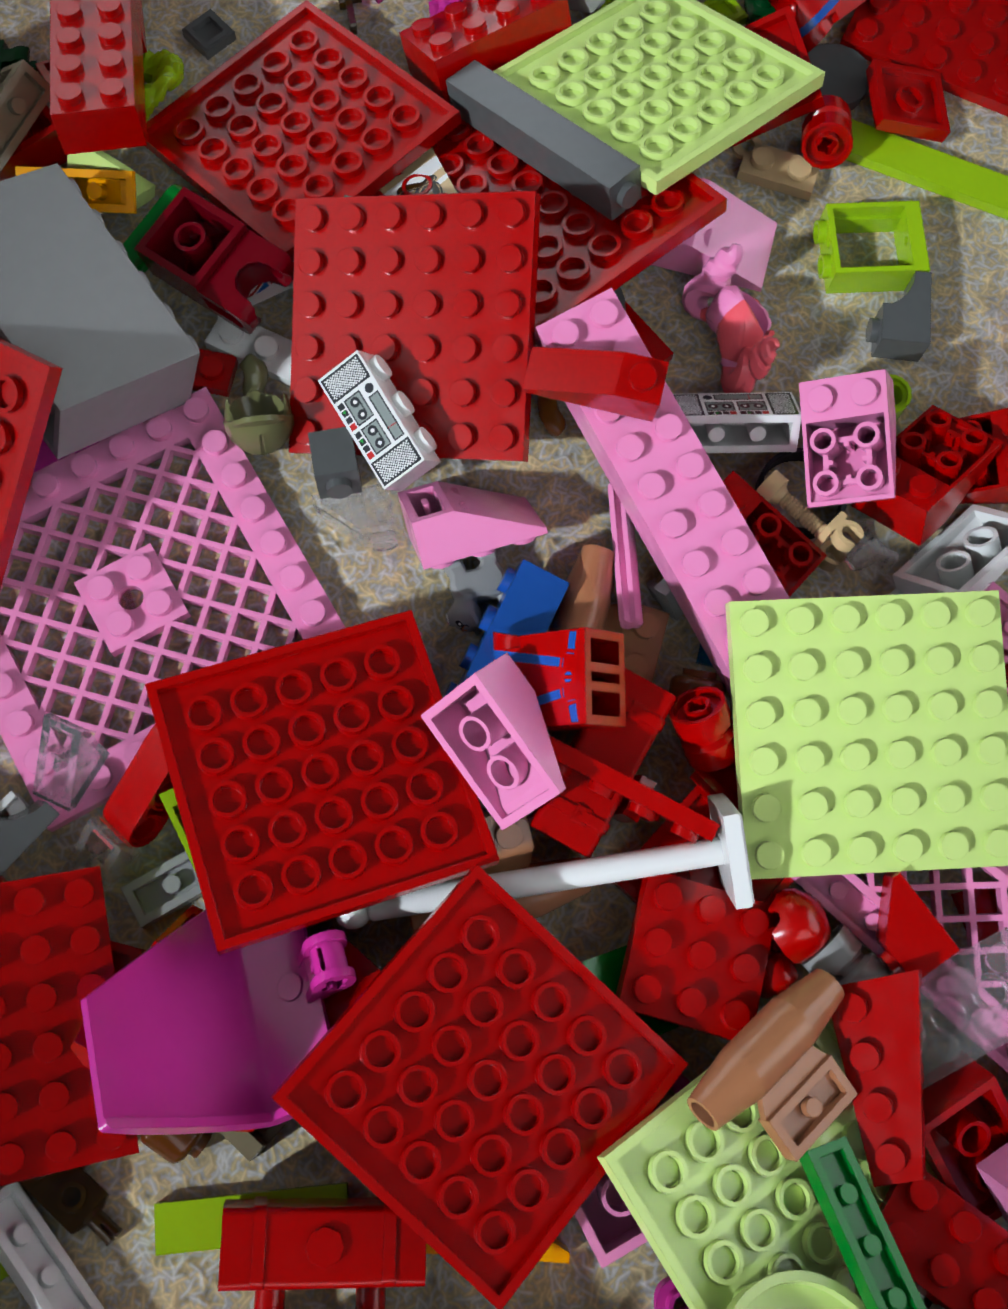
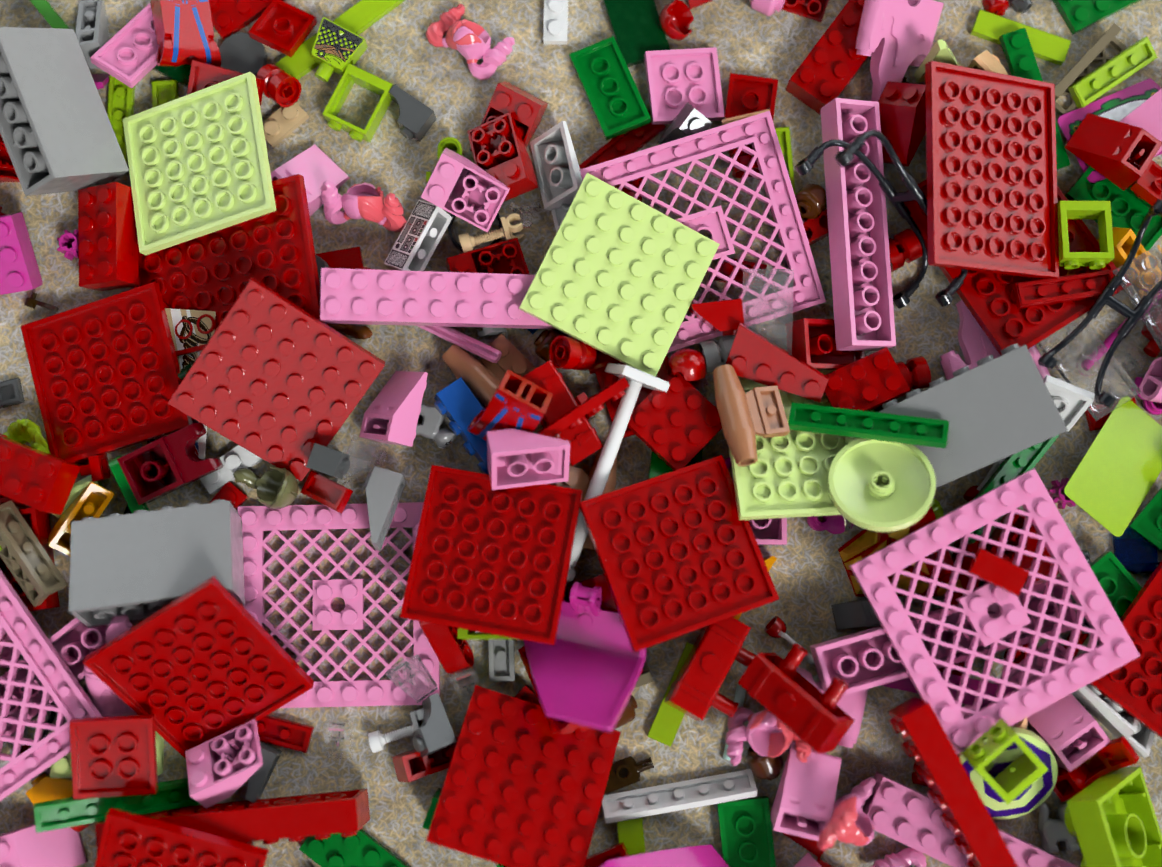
camera: 55 degrees left, 10 degrees up
(161, 177) = (97, 467): none -> red tile
(291, 493) = (326, 491): none -> red tile
(320, 573) = (383, 496): none -> light grey slope
(380, 420) = (320, 426): brick -> none
(545, 140) = (201, 247): dark grey brick -> none
(598, 379) = (369, 307): red slope -> none
(778, 975) = (705, 387): red piece -> none
(927, 172) = (335, 49): none -> torso

